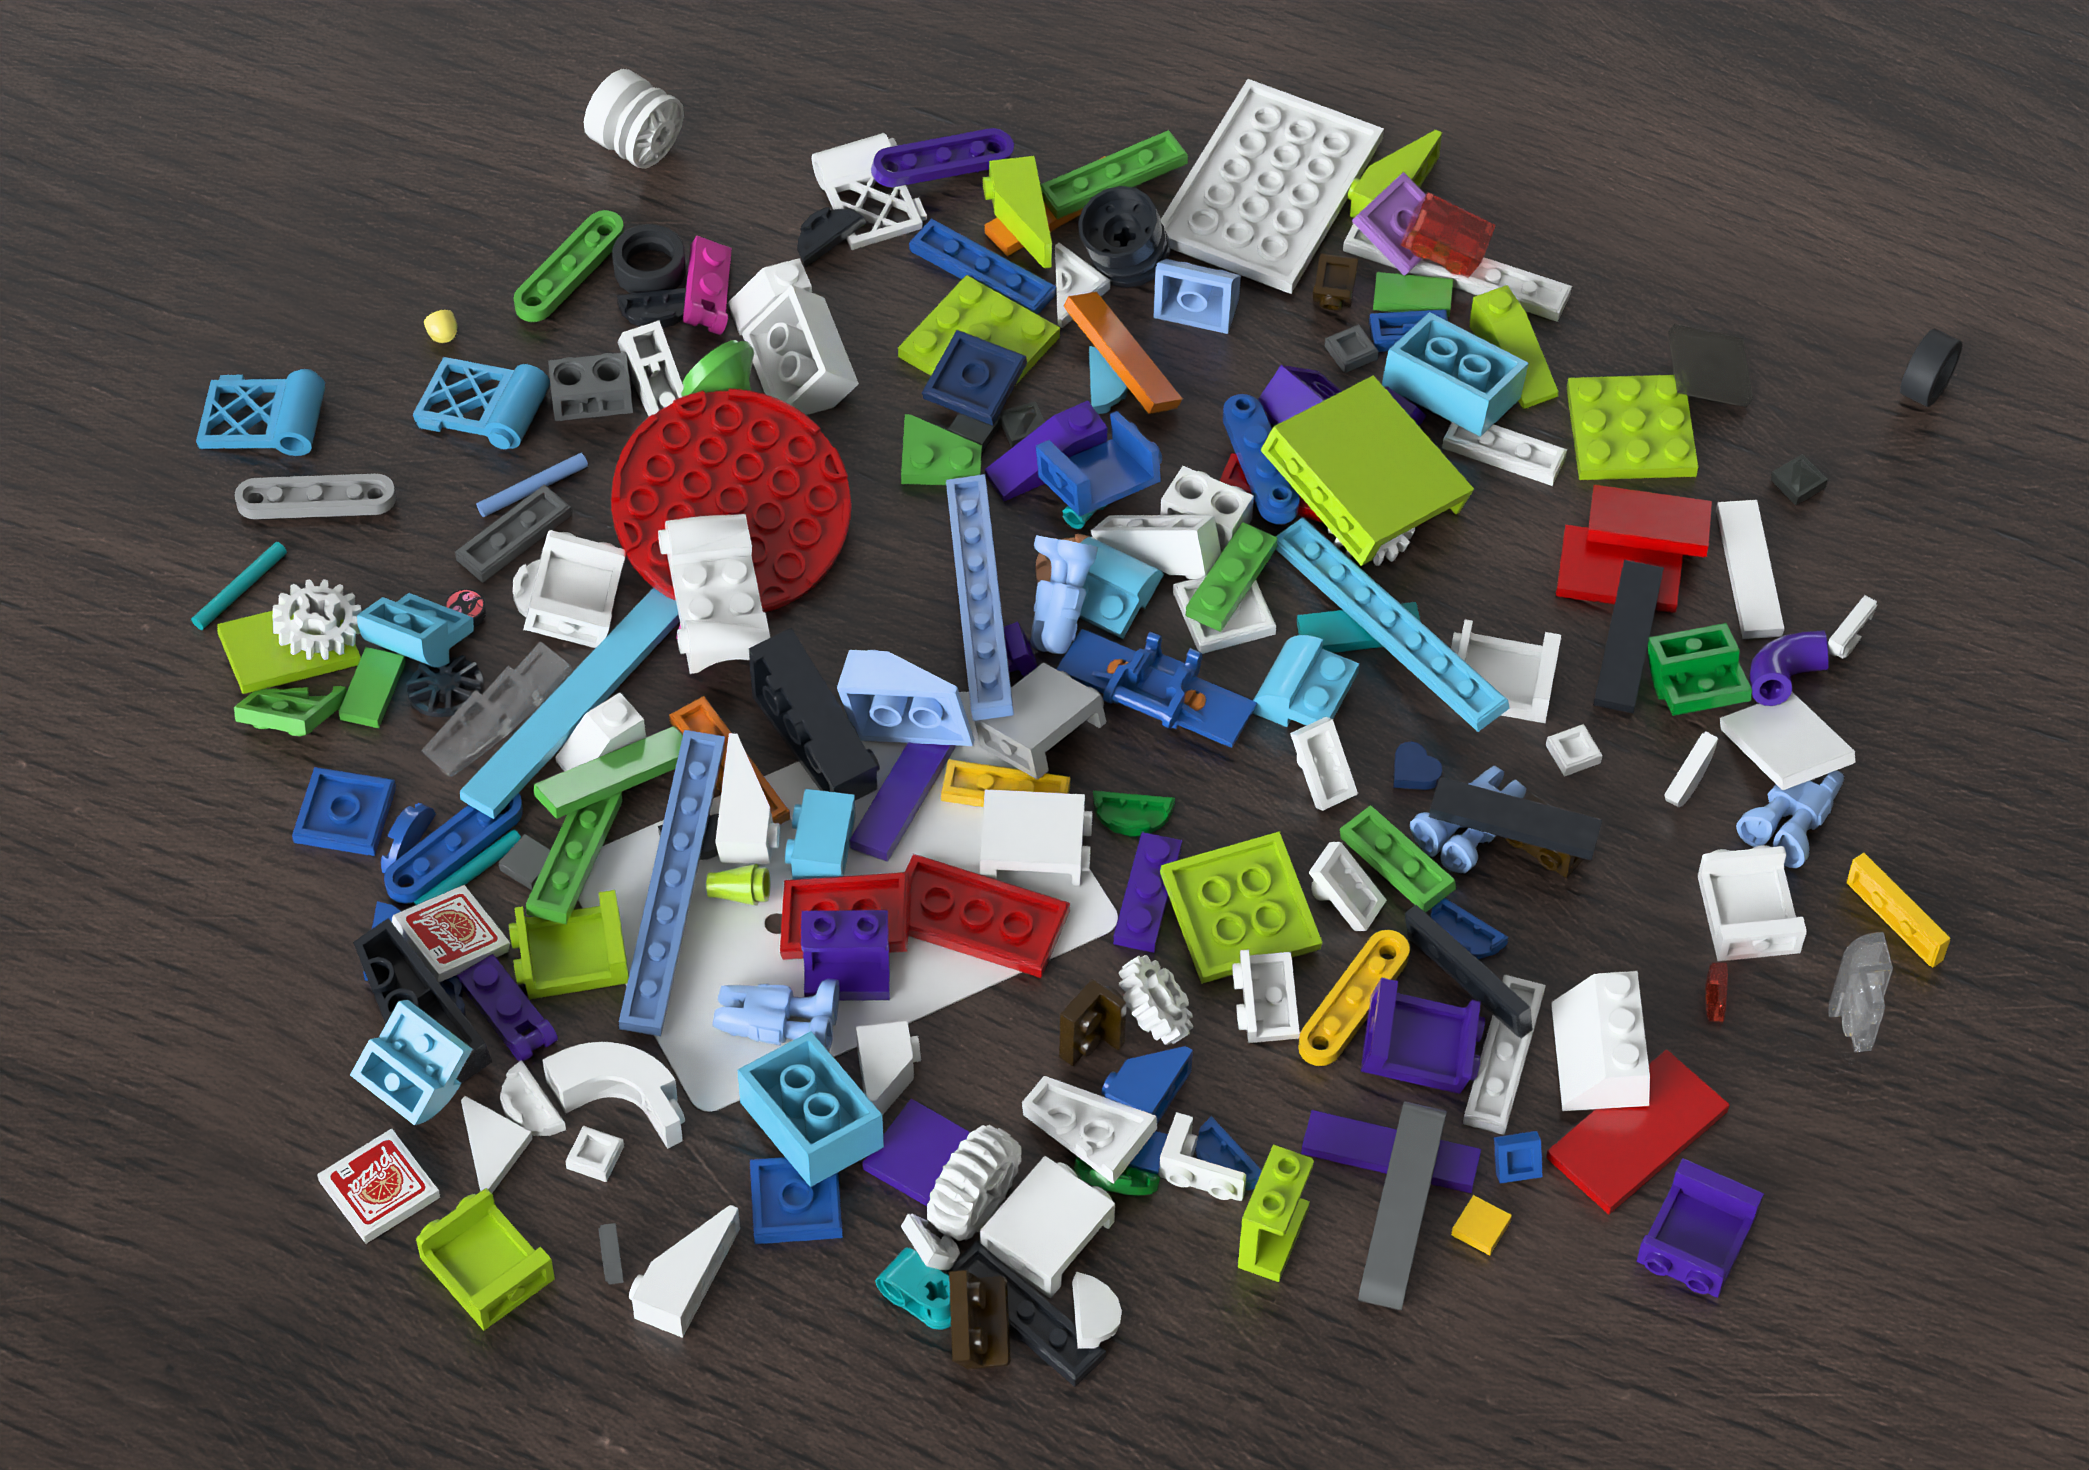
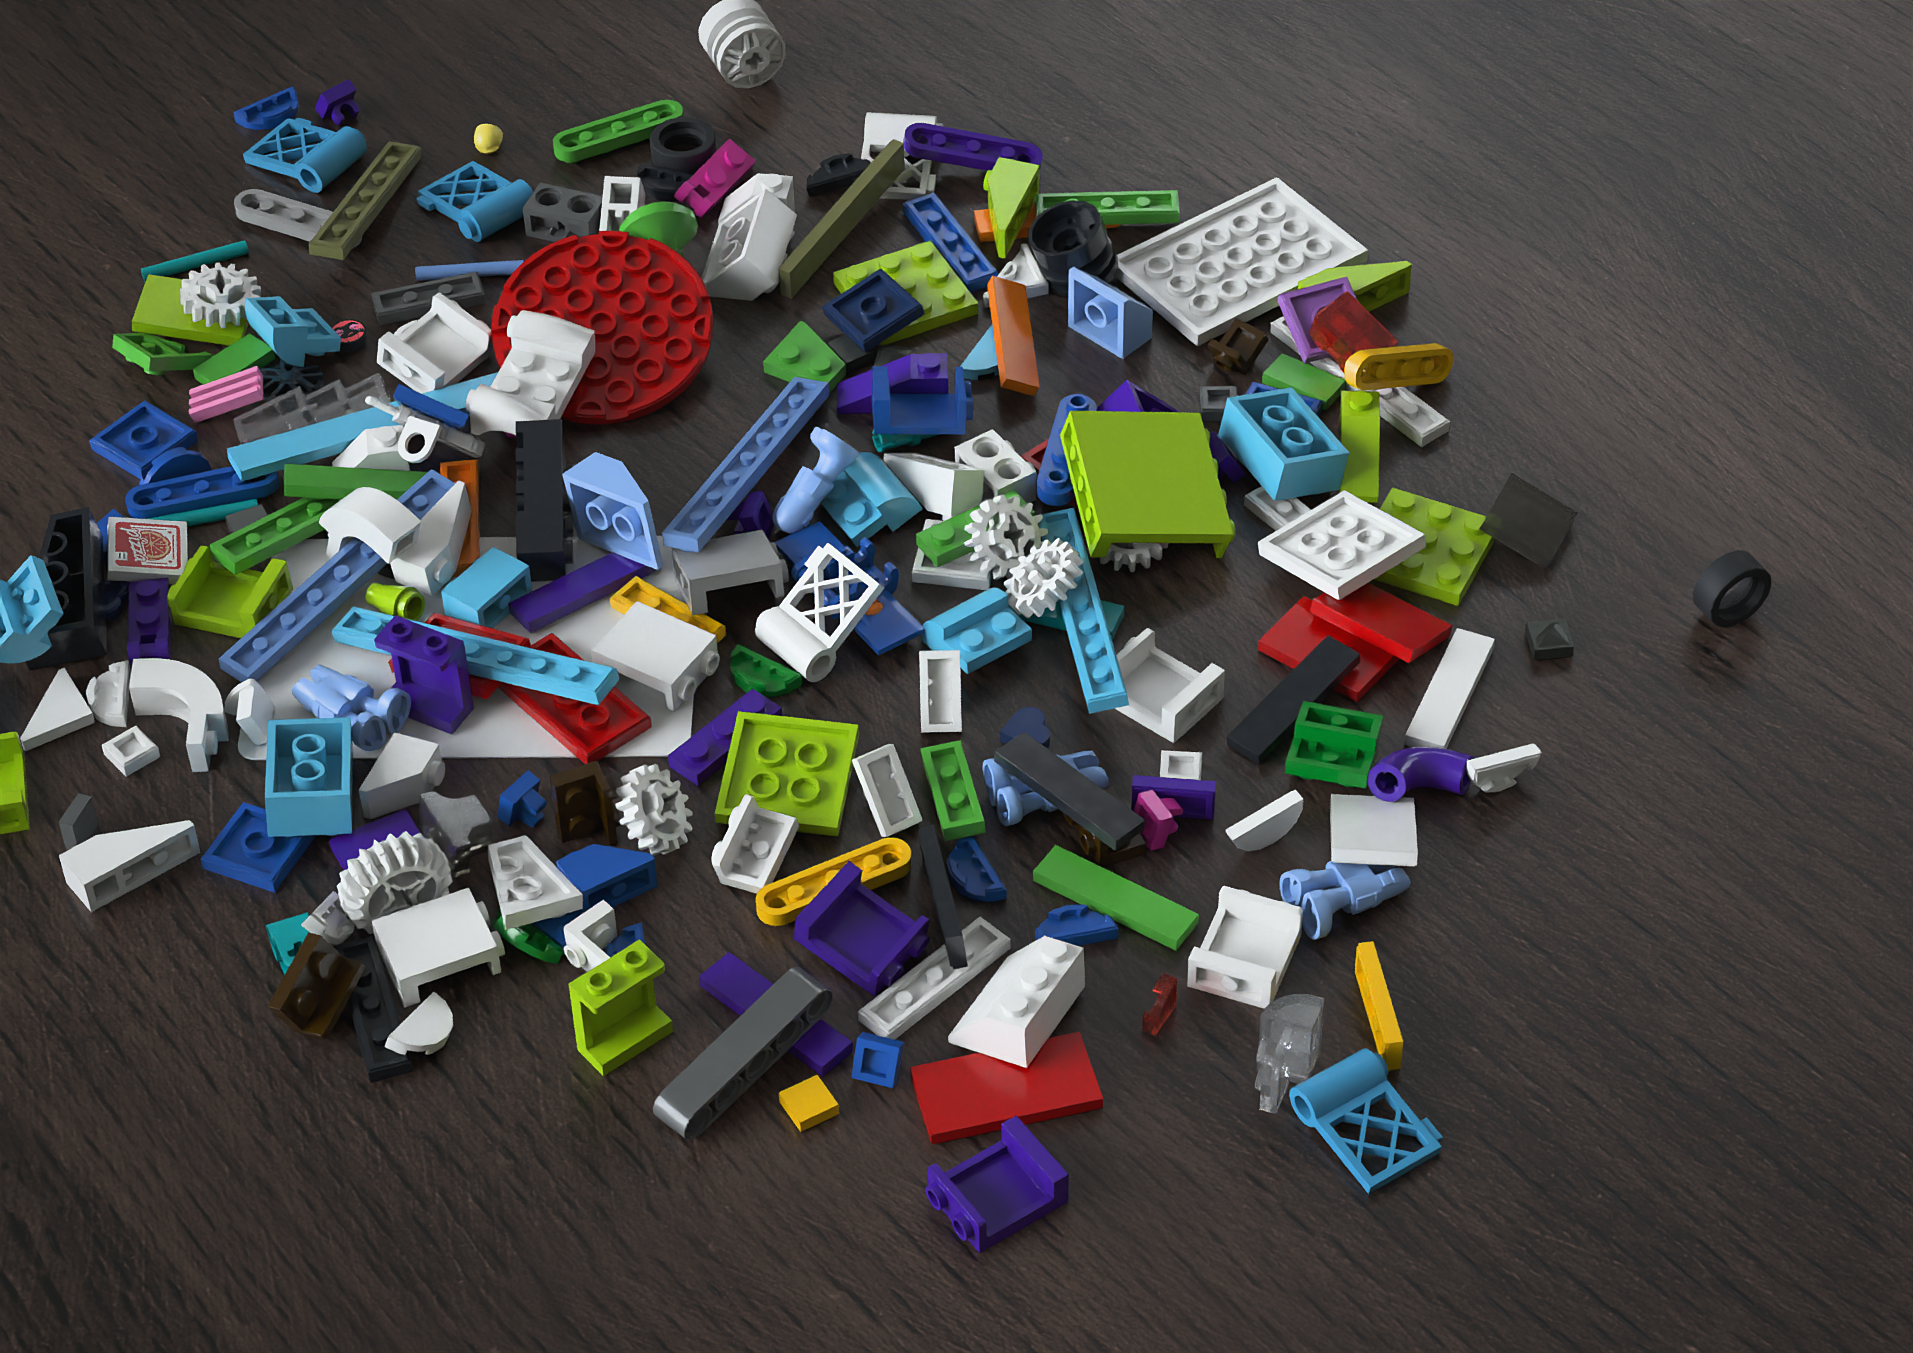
camera: 30 degrees right, 10 degrees down
(183, 379) = (269, 111): none -> blue tile
(253, 342) = (337, 99): none -> dark purple tile
(376, 449) = (365, 201): none -> olive tile
(394, 723) = (226, 394): none -> bright pink tile
(642, 664) = (432, 408): none -> blue tile
(650, 687) = (431, 429): none -> white piece
(682, 812) = (375, 520): none -> white arch
(686, 1051) = (252, 709): none -> white tile
(870, 284) = (841, 219): none -> olive tile
(907, 910) = (497, 659): none -> medium azure tile
(976, 1097) = (457, 827): none -> clear smoke brick
(1018, 1042) = (522, 801): none -> blue tile
(1150, 762) = (799, 639): none -> white piece
(1275, 577) = (1010, 521): none -> white gear
(1359, 592) = (1043, 578): none -> white gear
(1504, 251) = (1398, 366): none -> yellow plate
(1577, 461) = (1341, 545): none -> white plate
(1586, 948) = (1077, 926): none -> blue tile
(1592, 781) = (1193, 796): none -> dark purple tile
(1594, 804) = (1158, 818): none -> dark pink tile
(1604, 902) = (1116, 896): none -> bright green tile
(1921, 1008) = (1341, 1094): none -> dark azure piece

